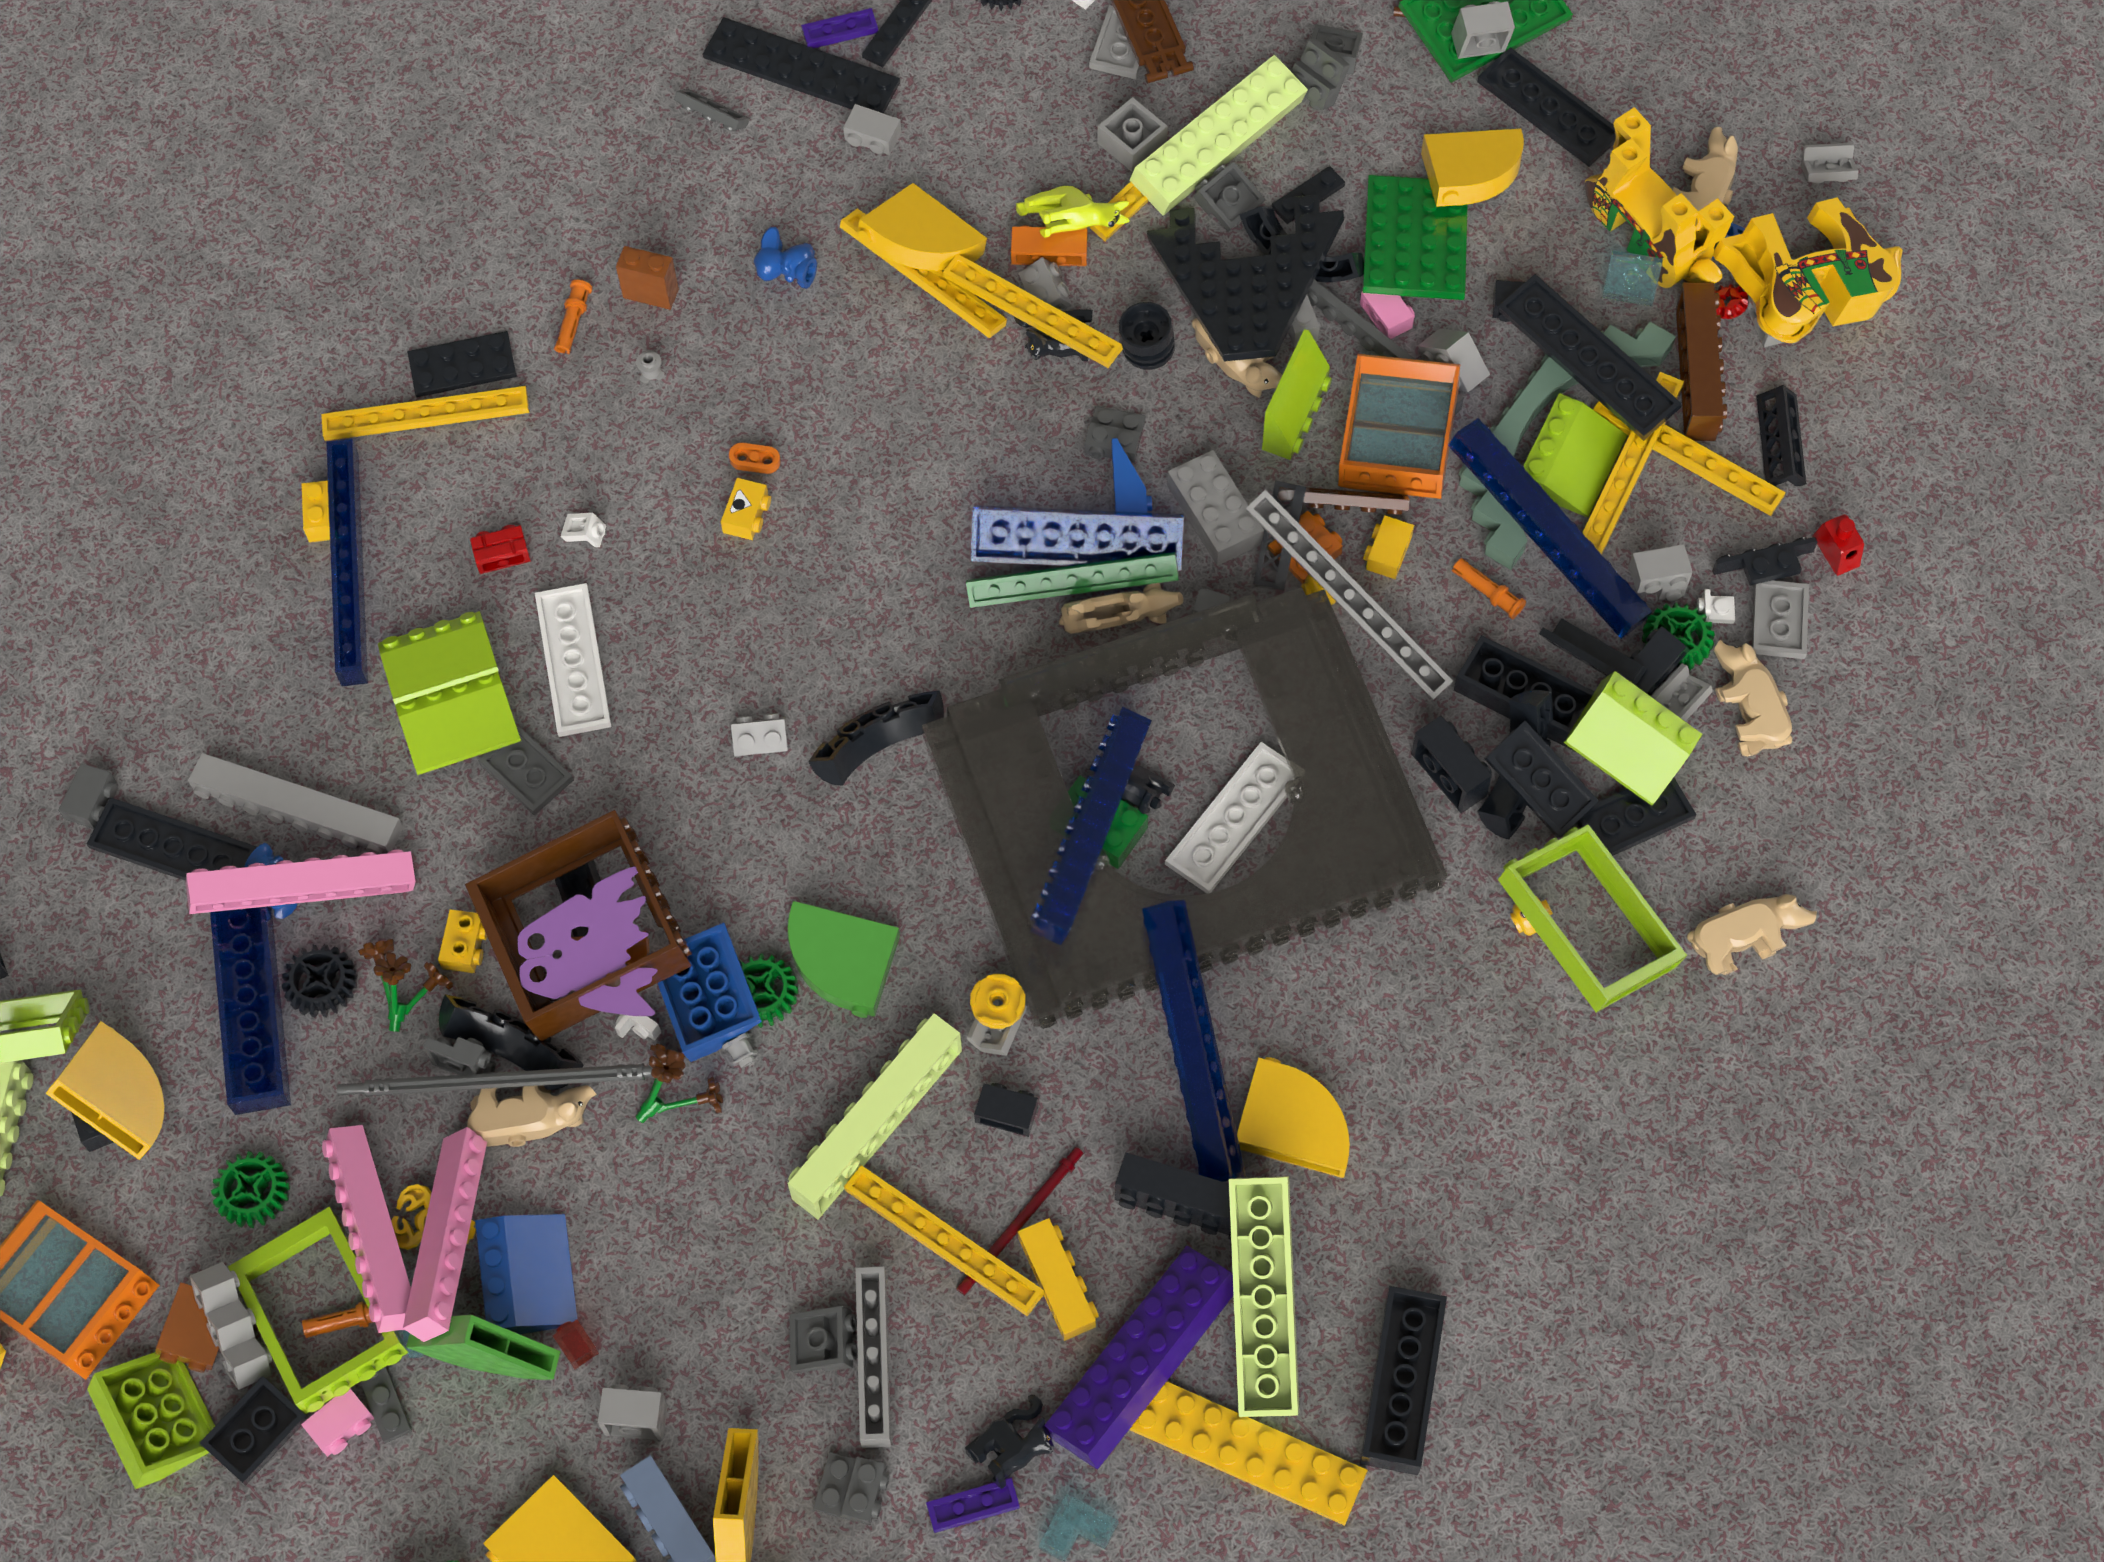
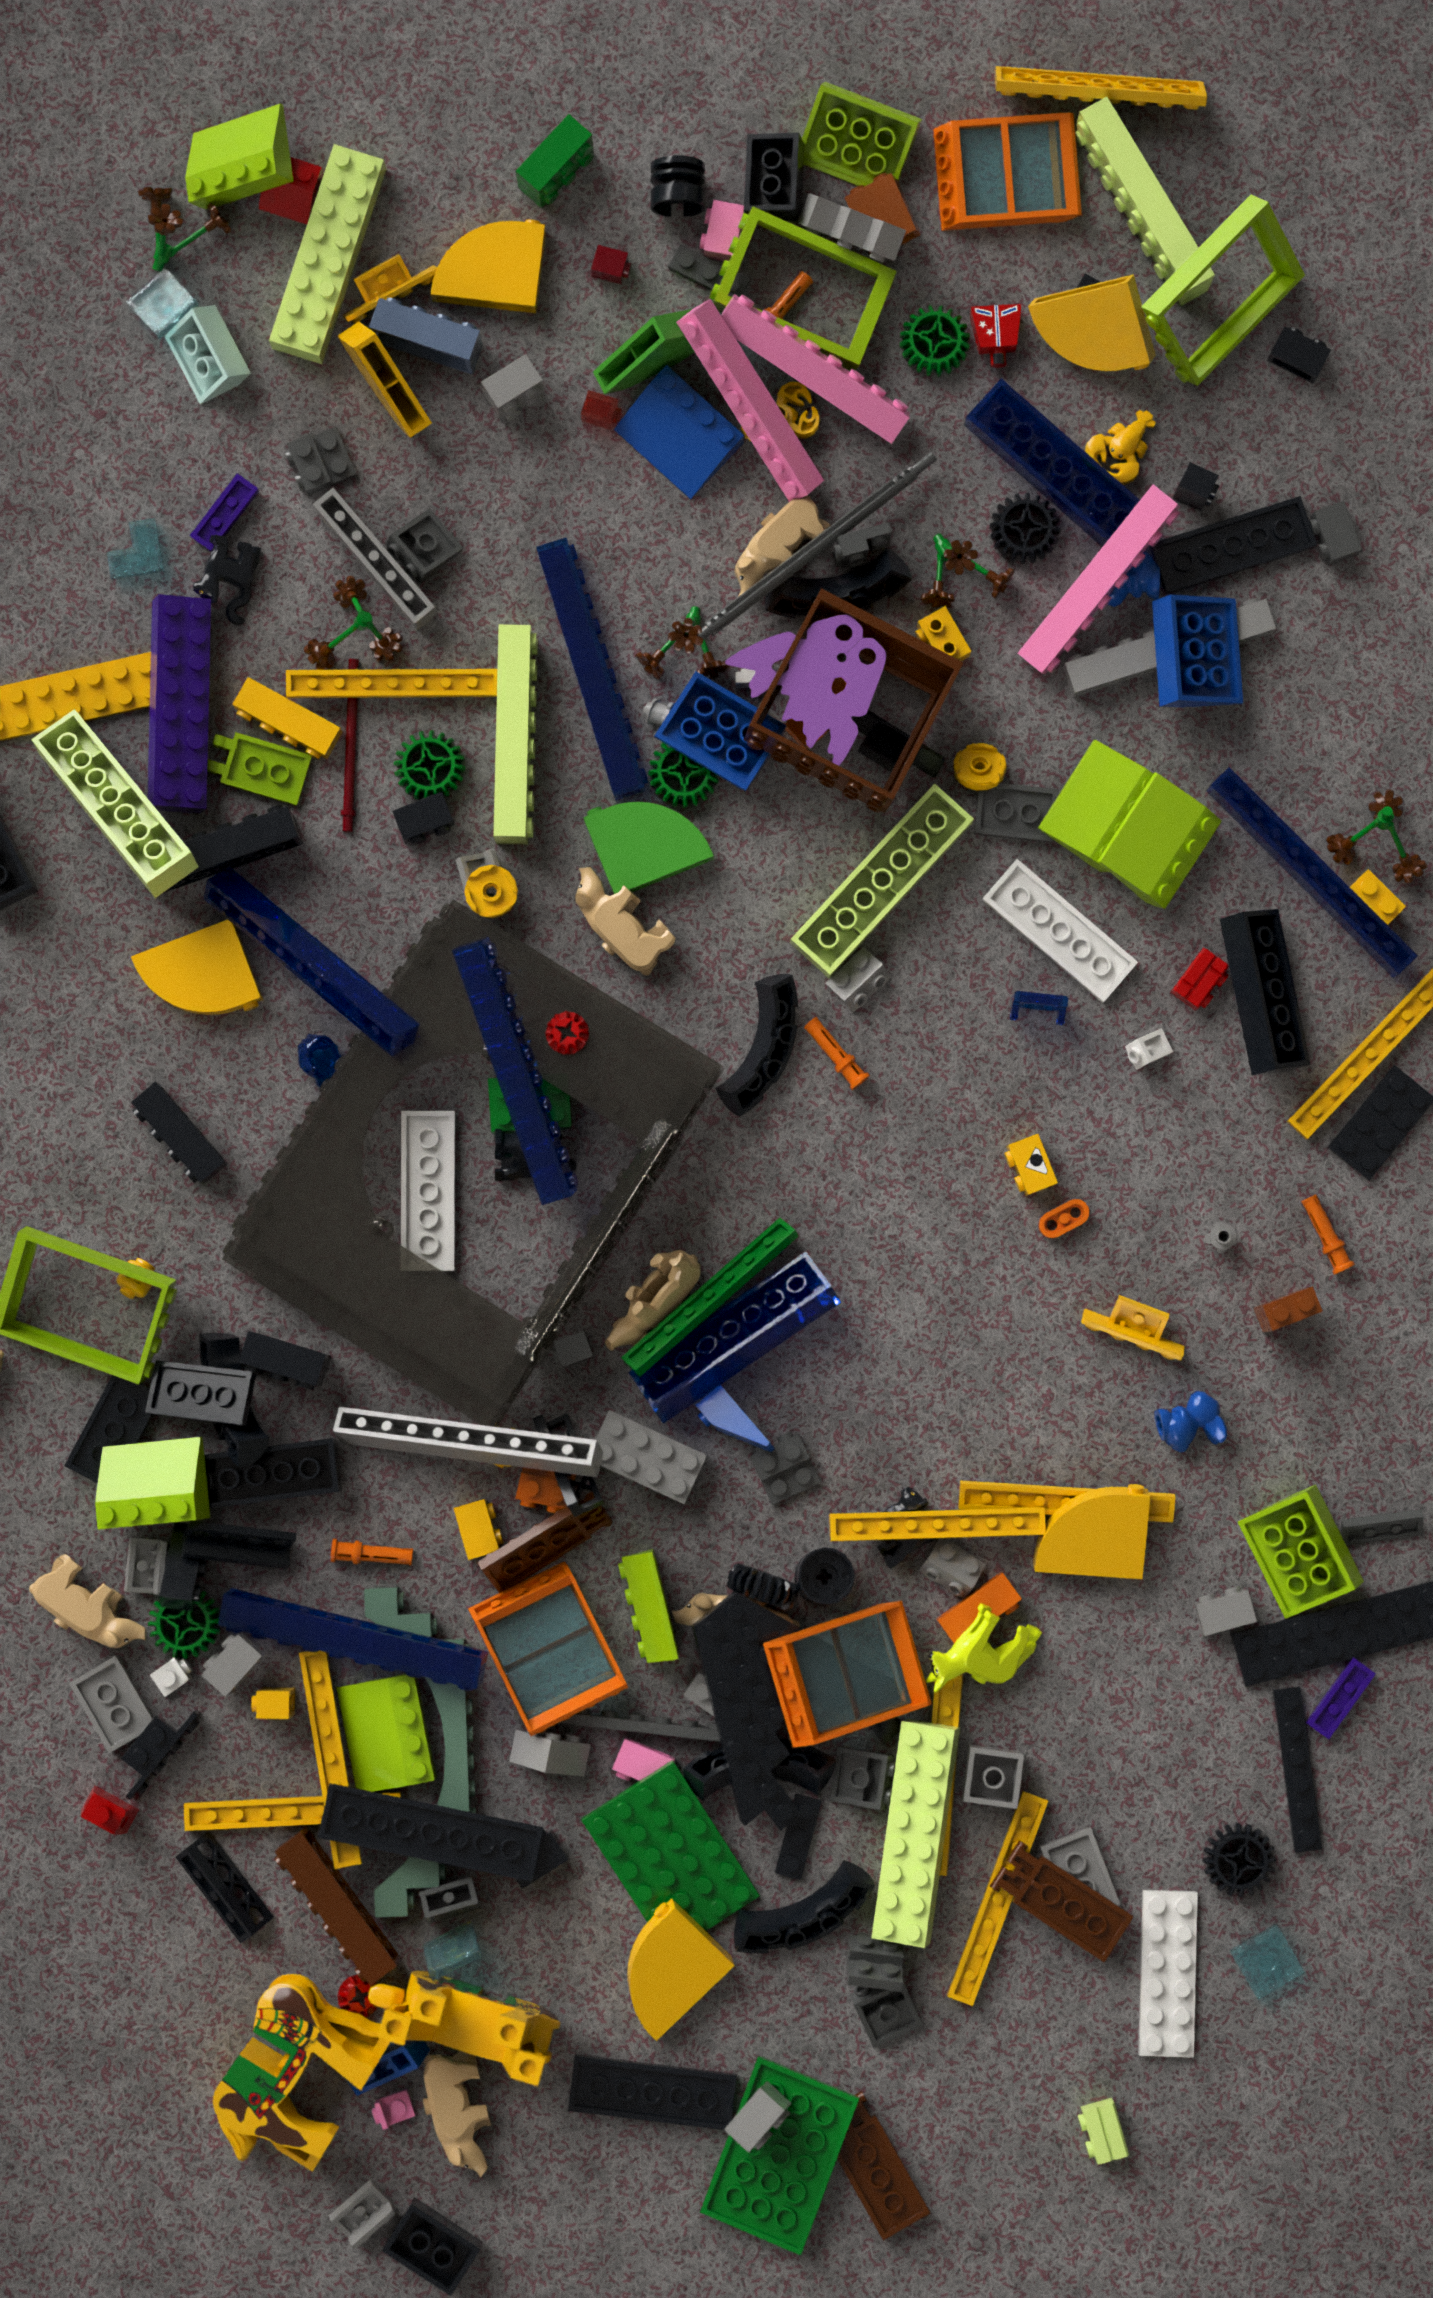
camera: 140 degrees right, 20 degrees up
(158, 905) = (1196, 487): none -> black piece
(183, 989) = (1123, 446): none -> yellow animal
(194, 1158) = (996, 330): none -> red torso
(271, 517) = (1385, 809): none -> reddish brown plant
(278, 773) = (1197, 651): none -> blue slope
(341, 1487) = (677, 182): none -> black wheel
(457, 1467) = (610, 265): none -> dark red brick
(461, 499) = (1264, 991): none -> black brick
(511, 821) = (981, 756): none -> yellow plate
(636, 612) = (1039, 1001): none -> clear blue piece
(680, 786) = (881, 881): none -> yellowish green brick
(765, 1131) = (591, 669): none -> clear blue brick
(767, 350) = (1136, 1324): none -> yellow bracket
(783, 131) = (1301, 1552): none -> lime slope
(823, 681) = (844, 1063): none -> orange pin
(915, 903) = (614, 922): none -> tan animal
(923, 1283) = (385, 642): none -> reddish brown plant
(956, 1143) = (440, 762): none -> green gear
(1021, 836) = (570, 1044): none -> red gear
(1111, 1255) = (261, 767): none -> lime tile
(1184, 255) = (847, 1674): none -> window
(1199, 357) = (762, 1586): none -> black gear
(1204, 61) = (994, 1904): none -> yellow plate
(1245, 979) = (318, 1057): none -> clear blue hair
(1343, 139) = (806, 1919): none -> black brick
(1410, 1001) = (179, 1133): none -> black brick
(1607, 310) = (449, 1900): none -> dark grey brick
(1646, 526) = (274, 1703): none -> yellow brick
(1751, 210) = (393, 2109): none -> bright pink bracket
(1791, 110) = (432, 2246): none -> black brick

